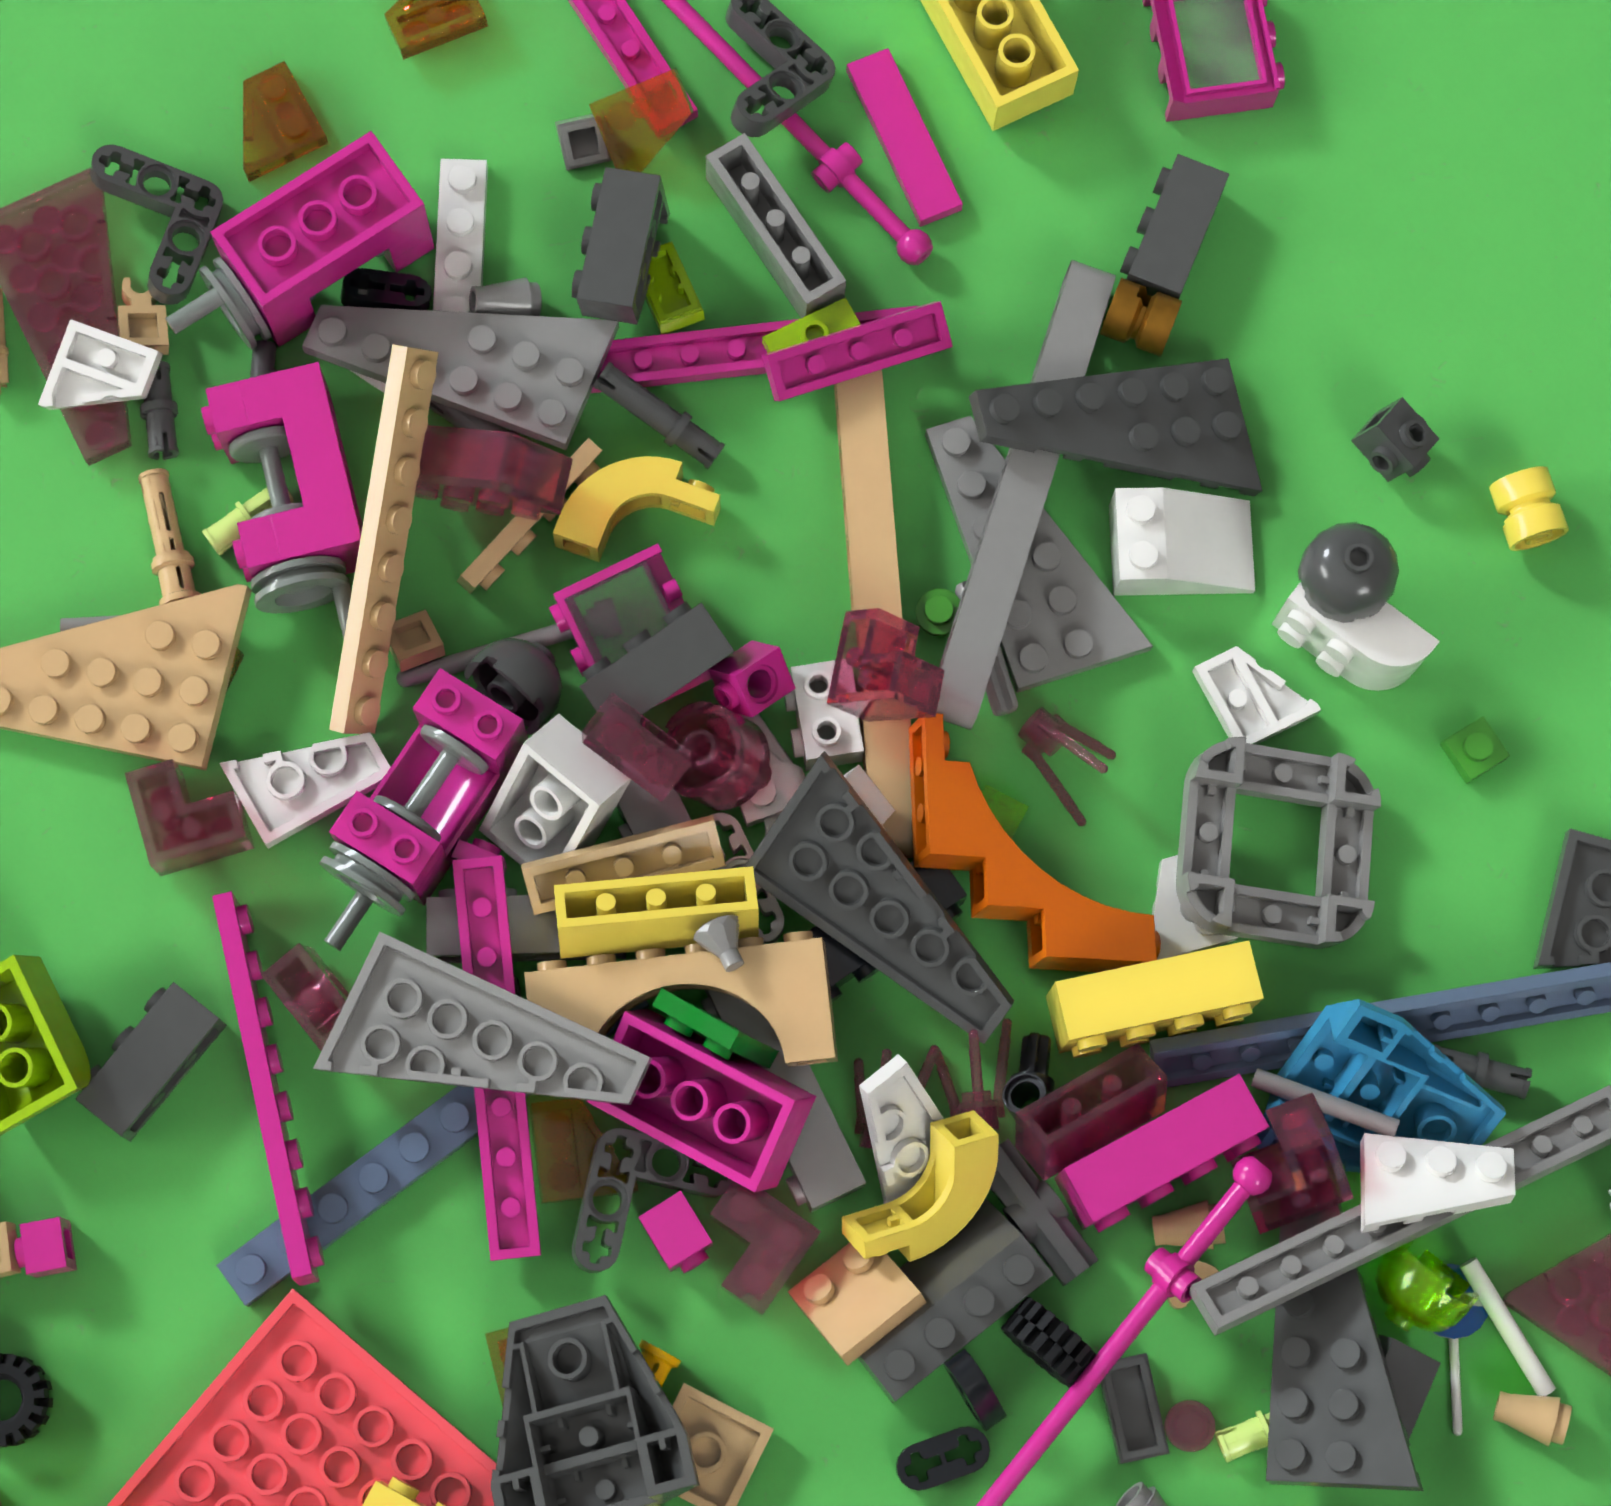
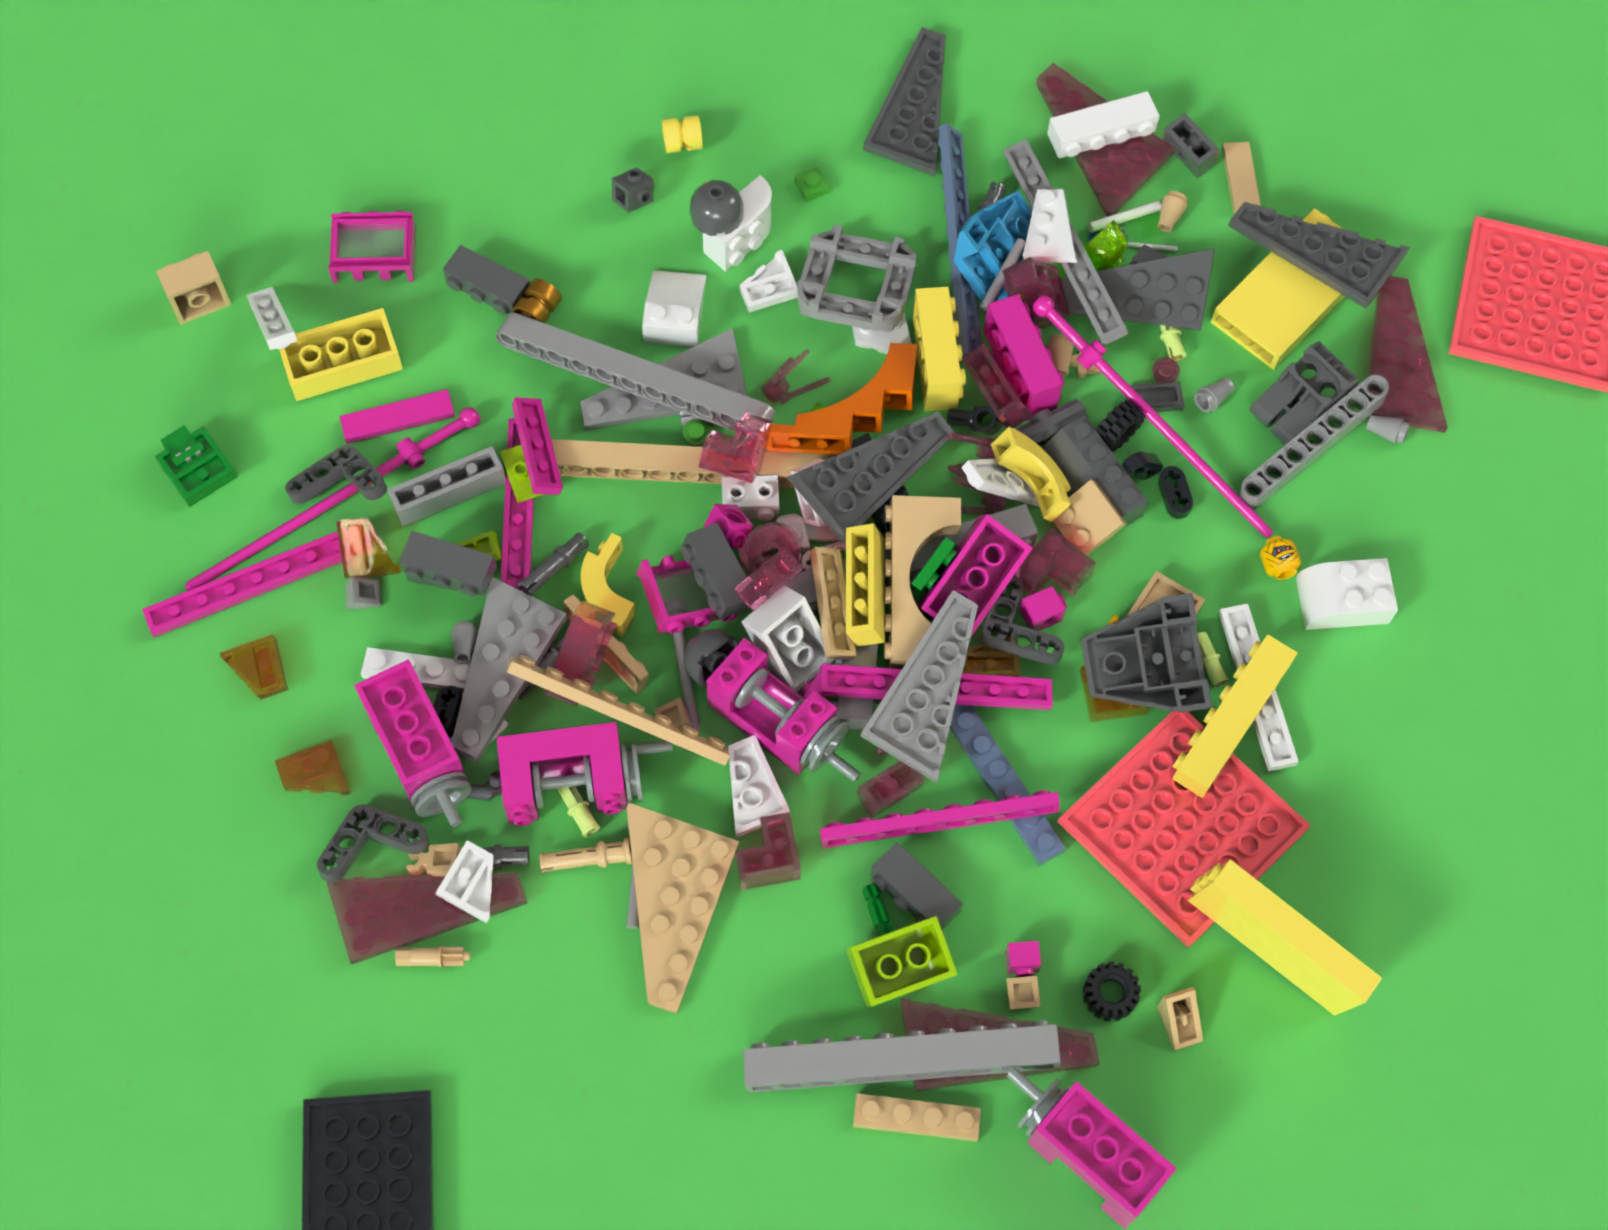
camera: 80 degrees left, 10 degrees down
(112, 1006) = (877, 909): none -> green axle
(721, 939) = (887, 545): light grey rock -> none
(1139, 421) = (602, 311): dark grey wing -> none

